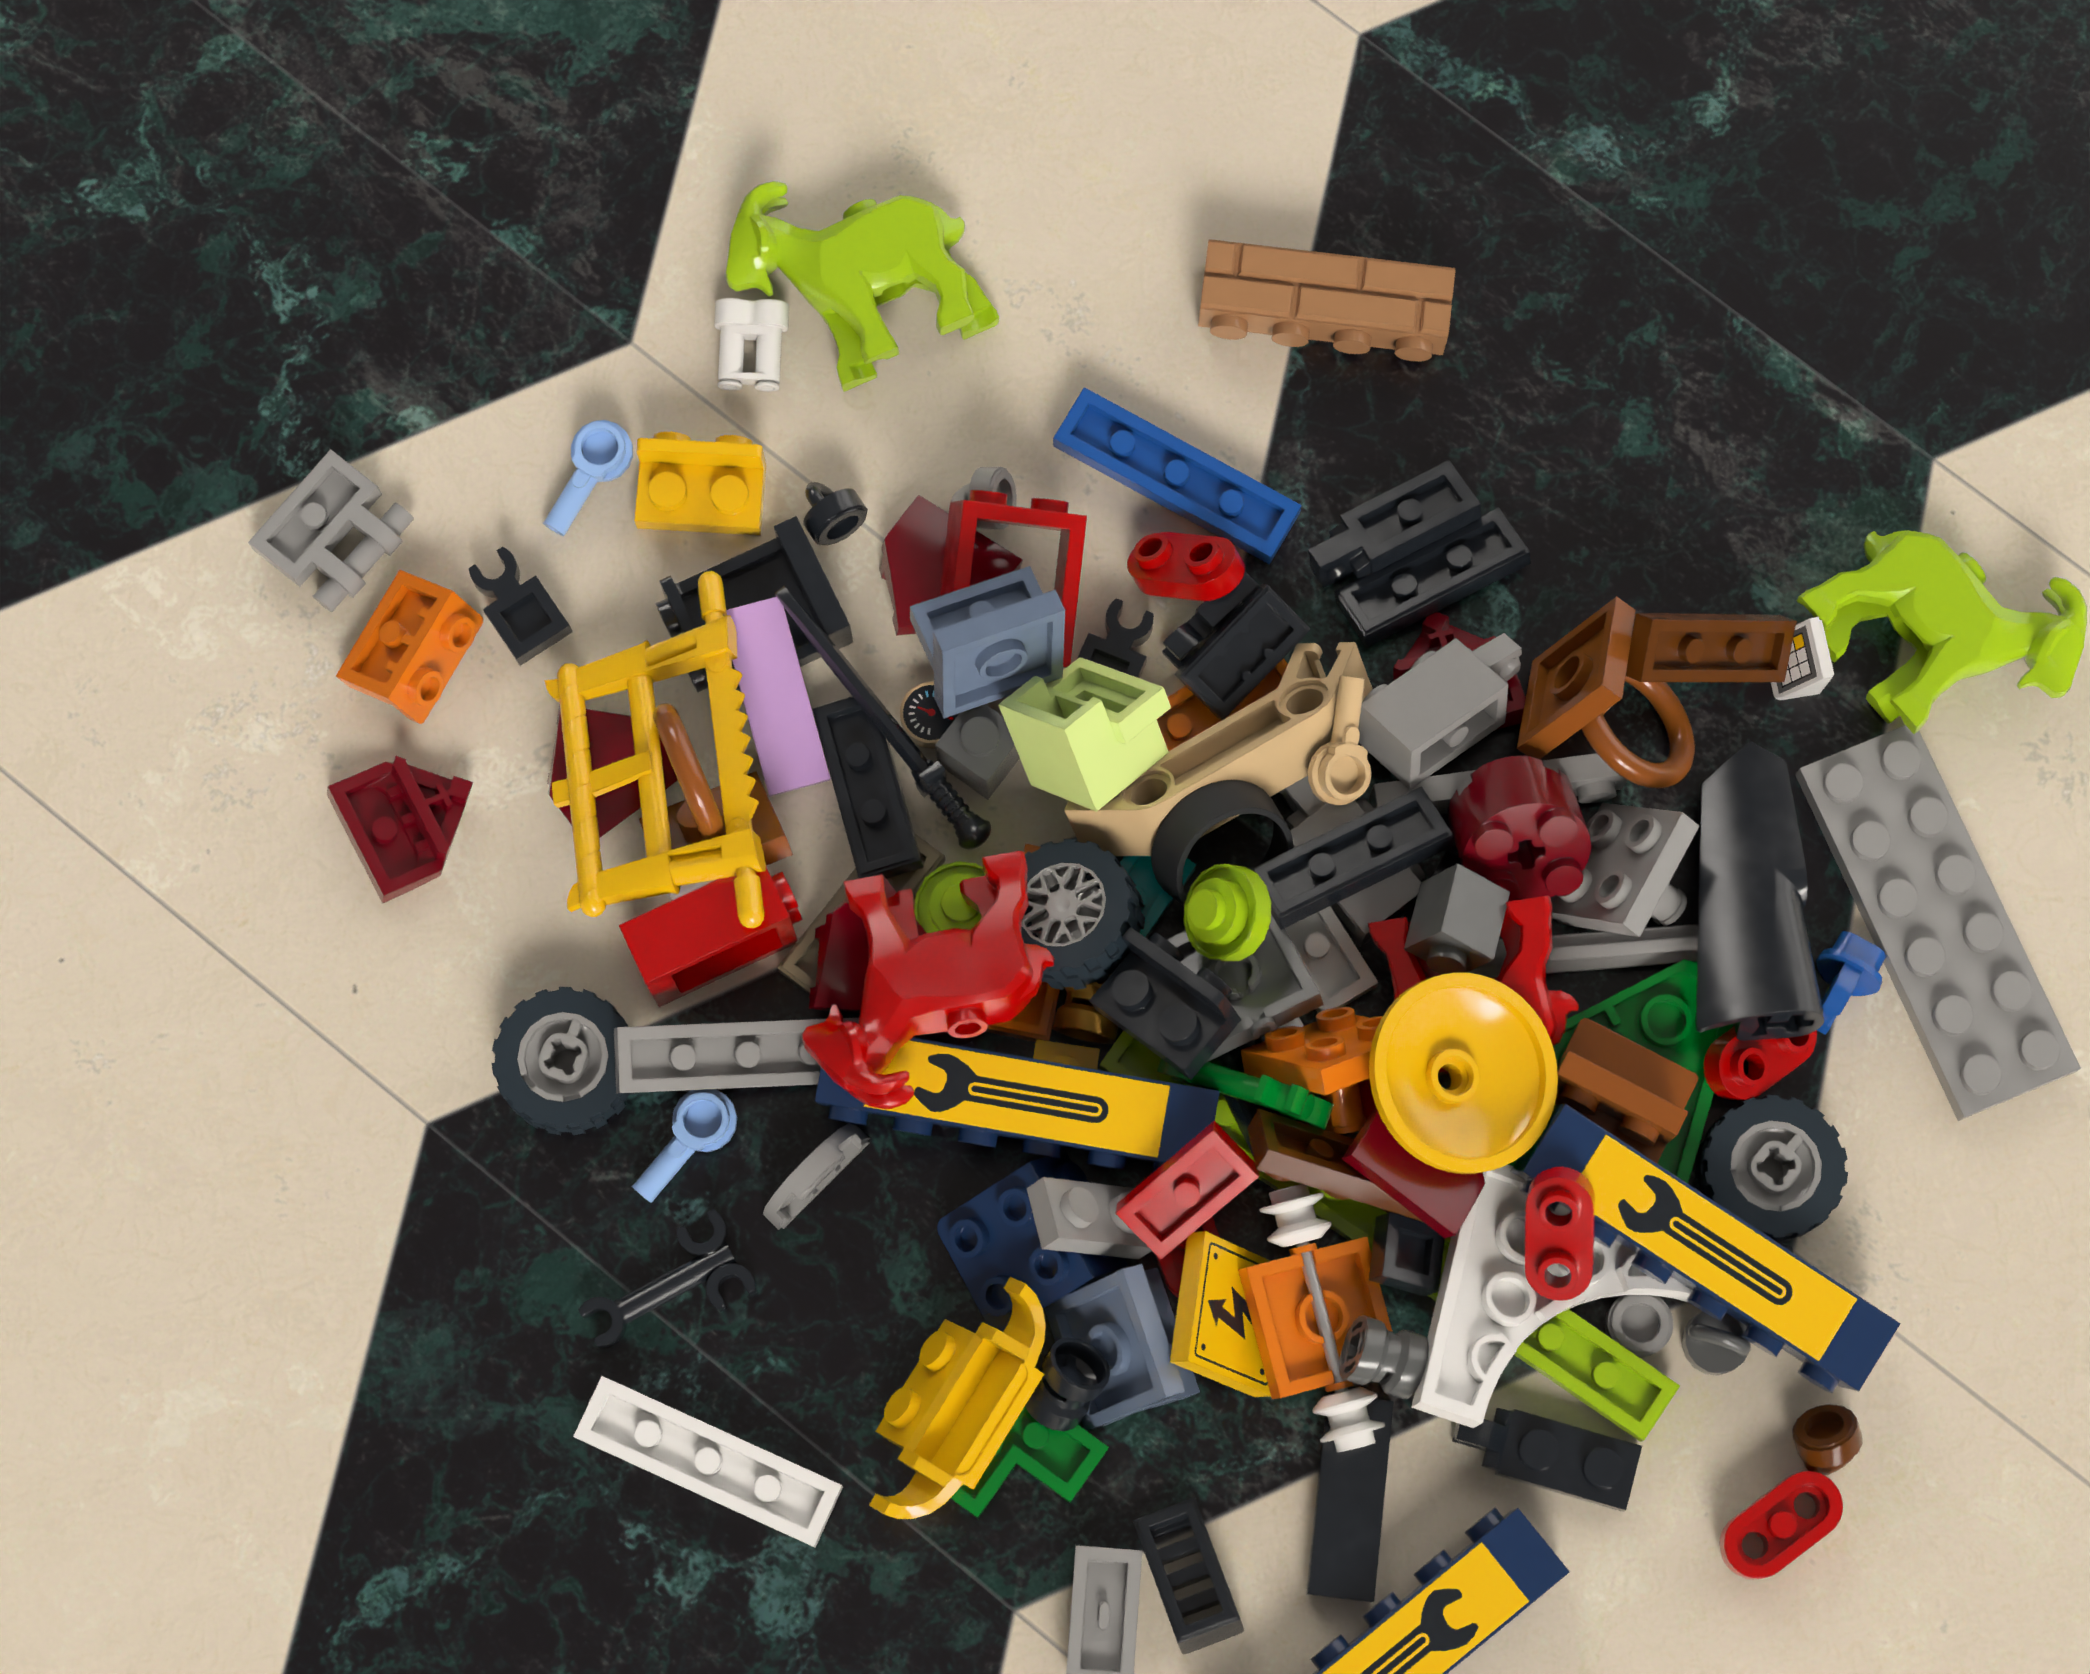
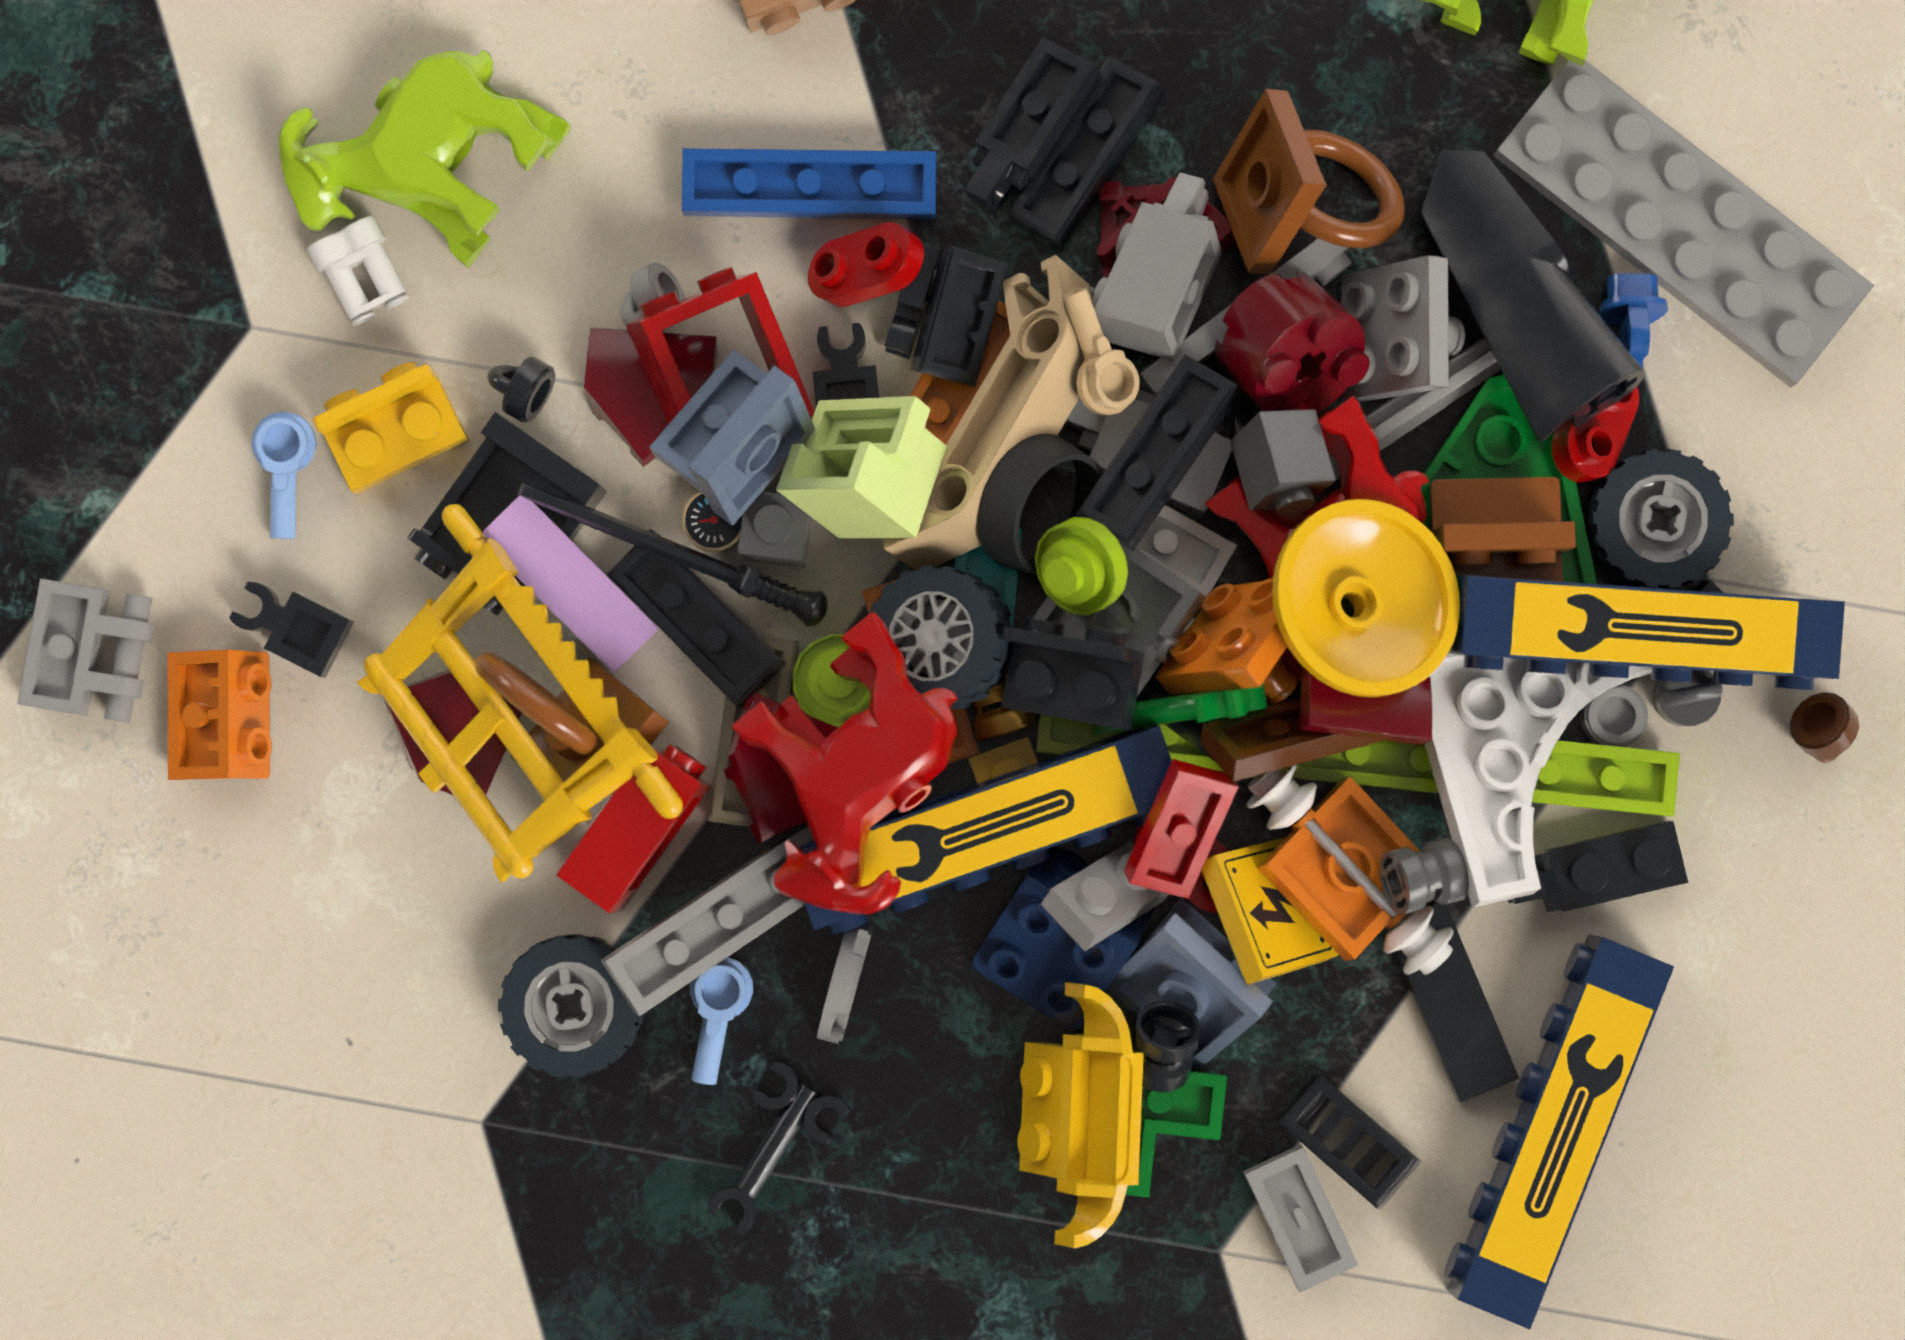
camera: 30 degrees left, 10 degrees up
(400, 822) = (302, 876): dark red slope -> none
(708, 1461) = (893, 1277): white plate -> none
(1406, 1254) = (1392, 774): black plate -> none
(1560, 1238) = (1522, 694): red plate -> none
(1710, 647) = (1368, 87): reddish brown plate -> none
(1779, 1526) = (1827, 826): red plate -> none
(1808, 663) = (1445, 52): slope -> none

